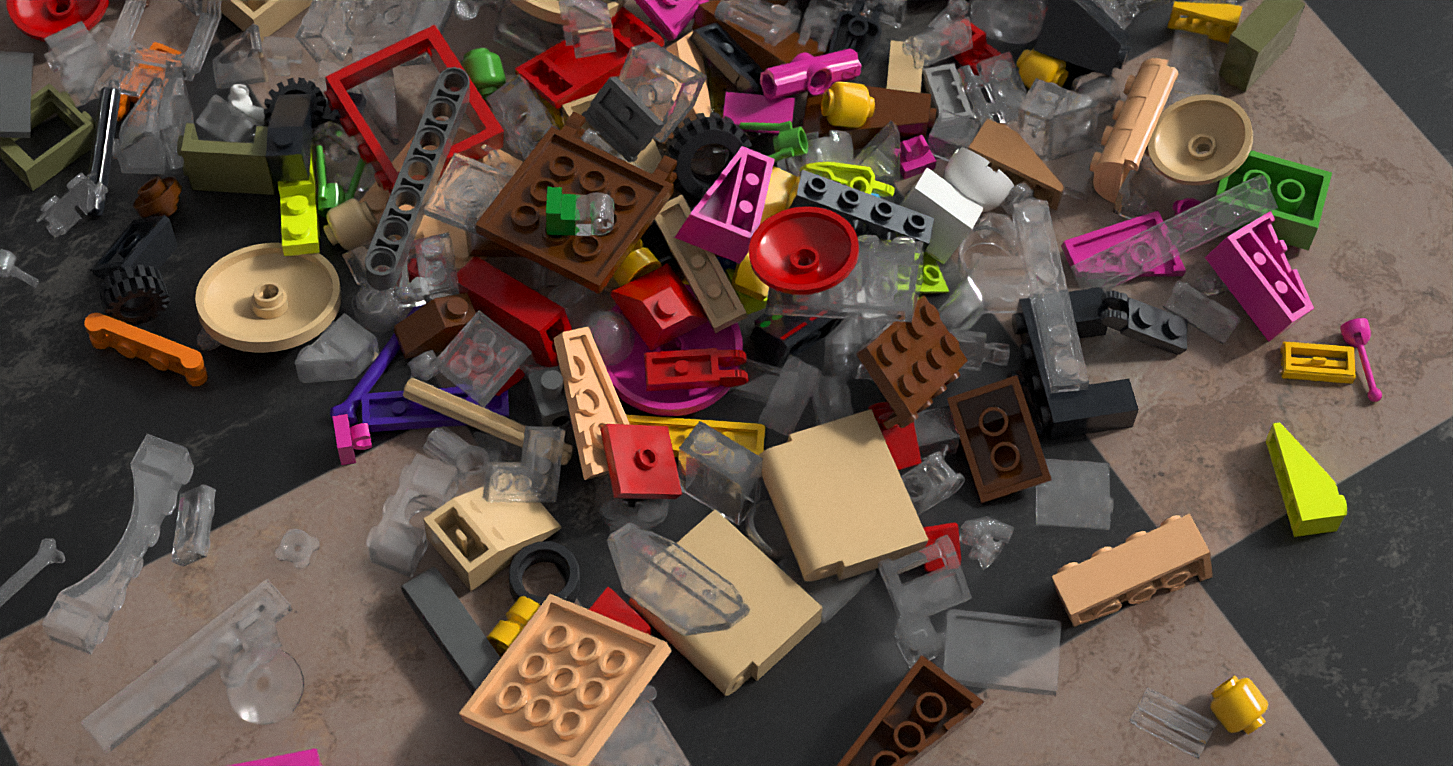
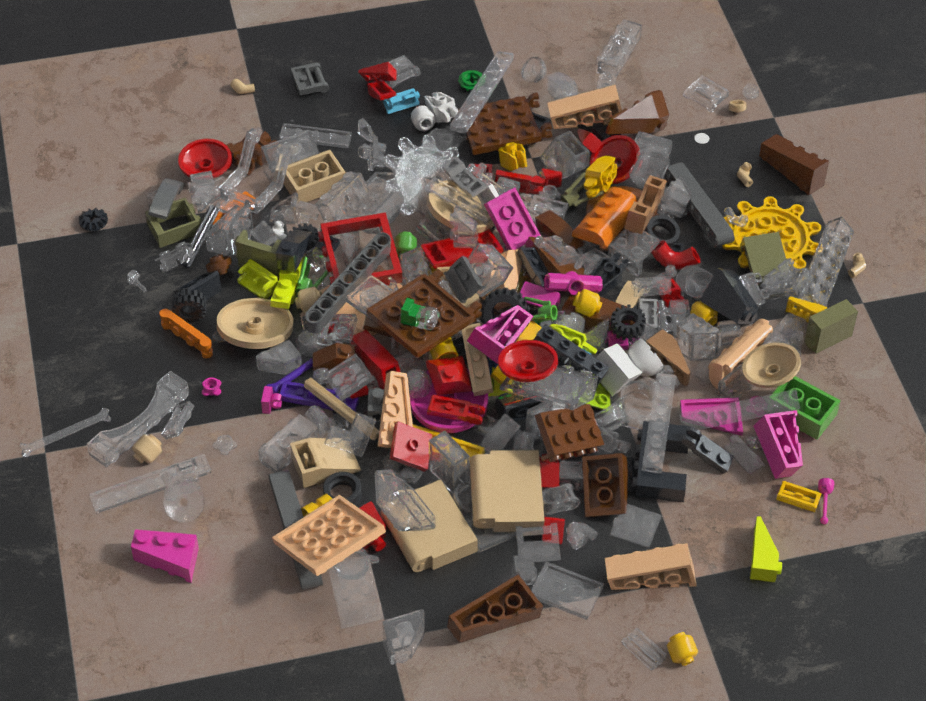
camera: 20 degrees right, 10 degrees down
(157, 599) = (147, 449): none -> tan head
(227, 433) = (211, 387): none -> dark pink plate
(240, 209) = (257, 279): none -> neon yellow hinge
(929, 139) = (628, 331): none -> black tyre

